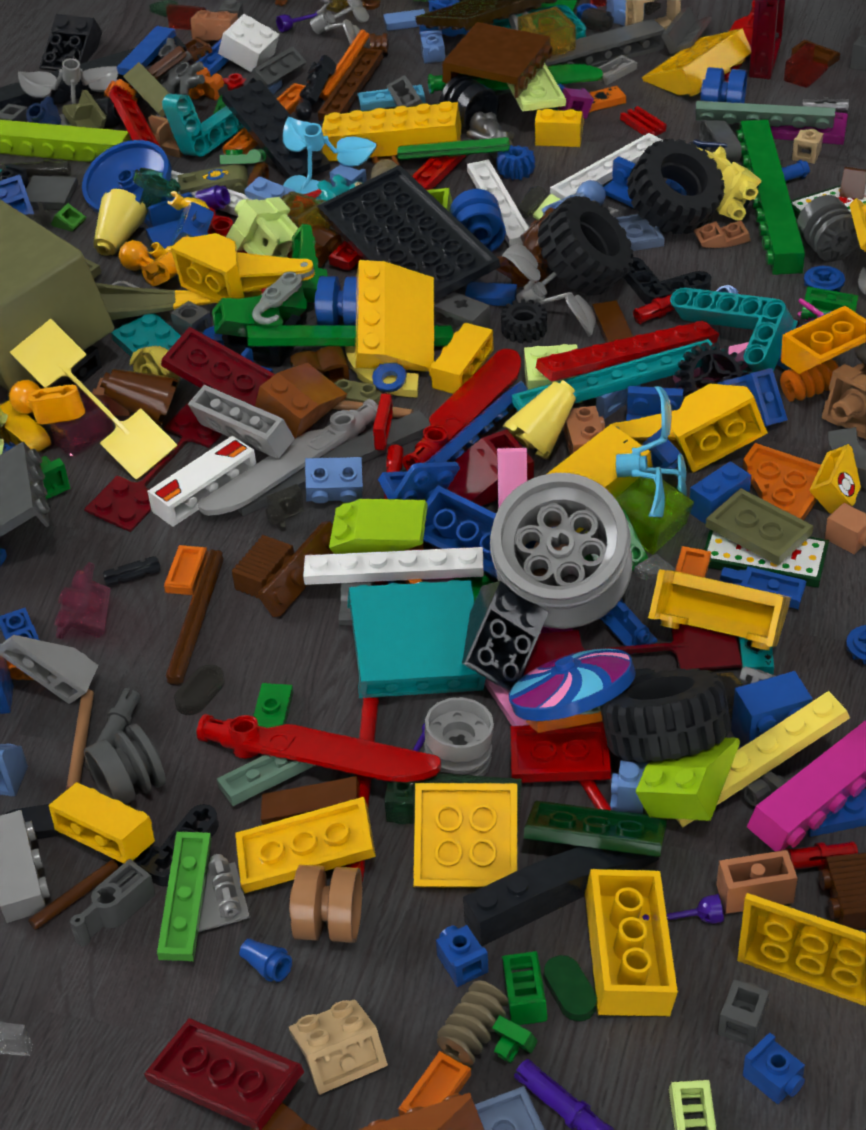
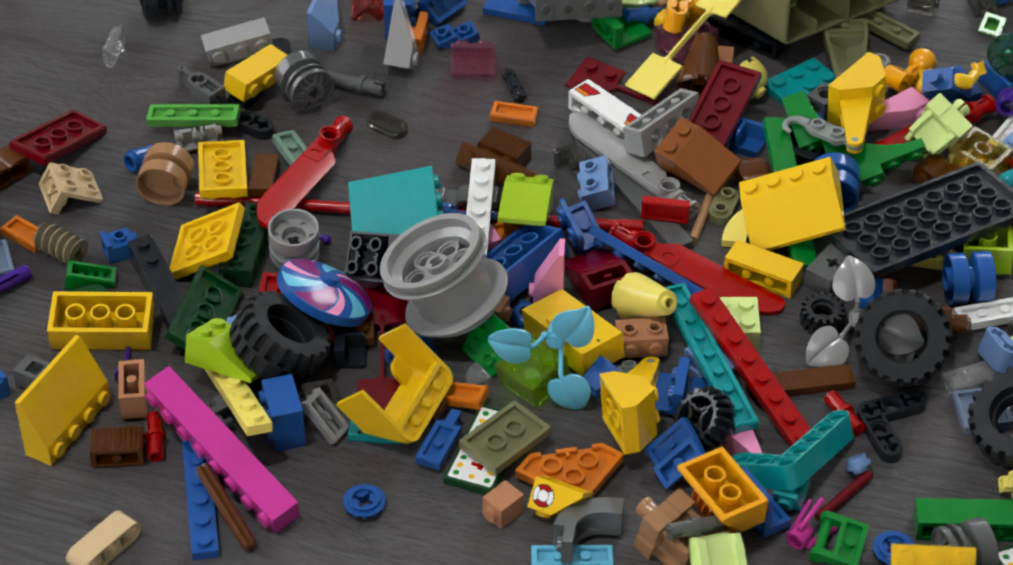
camera: 90 degrees right, 0 degrees up
(73, 895) = (210, 70): reddish brown bar -> none
(80, 738) = (365, 71): medium nougat bar -> none
(117, 220) = (965, 45): light yellow cone -> none
(194, 617) = (461, 119): reddish brown axle -> none
(273, 704) = (358, 160): green plate -> none
(385, 370) = (728, 214): blue piece -> none
(512, 1039) = (49, 264): green tile -> none
(715, 237) = (975, 476): nougat slope -> none
(717, 488) = (564, 422): blue brick -> none

